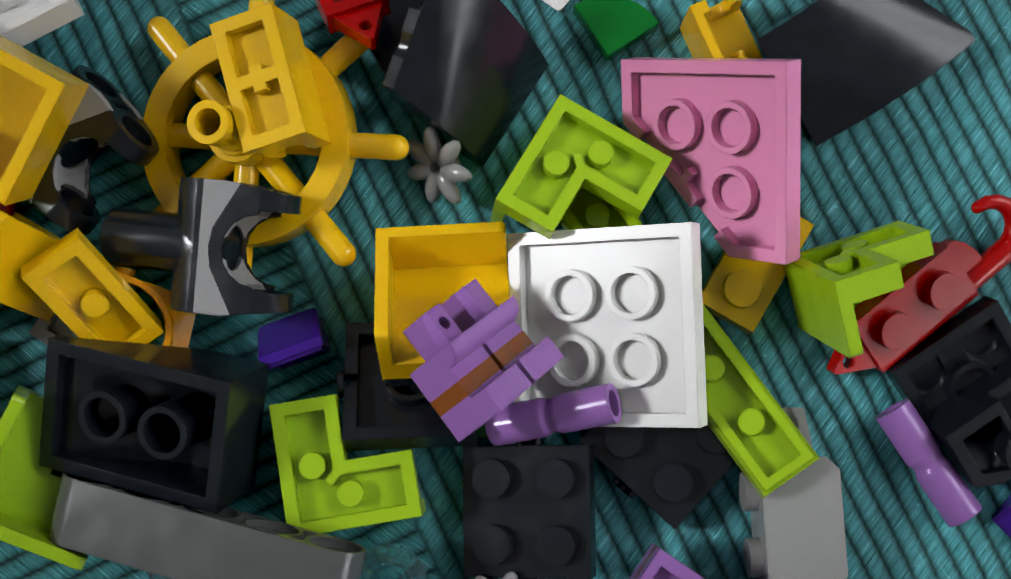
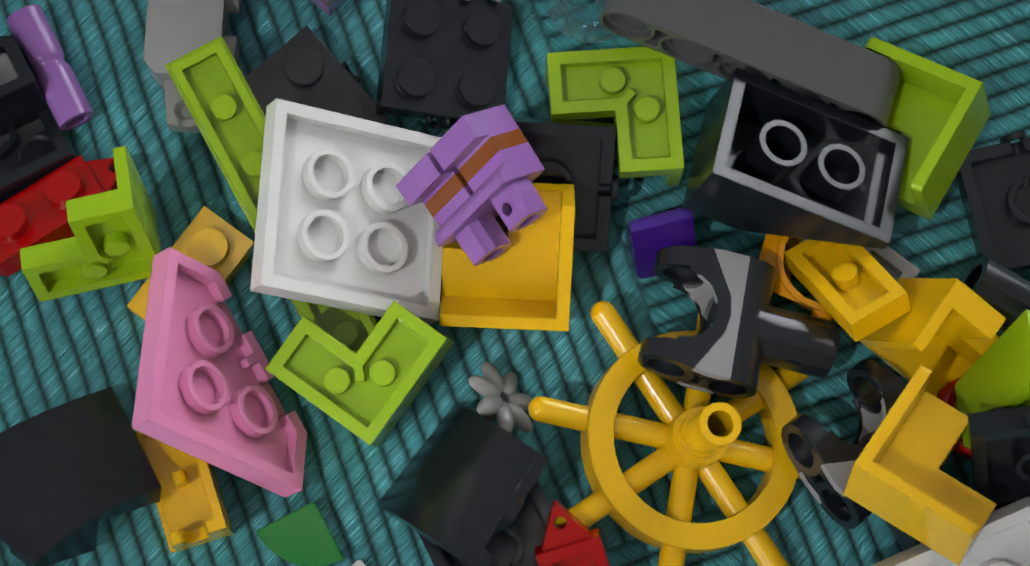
camera: 175 degrees left, 5 degrees down
(269, 82) = (659, 469): yellow hinge -> none
(561, 413) = (396, 132): medium lavender piece -> none

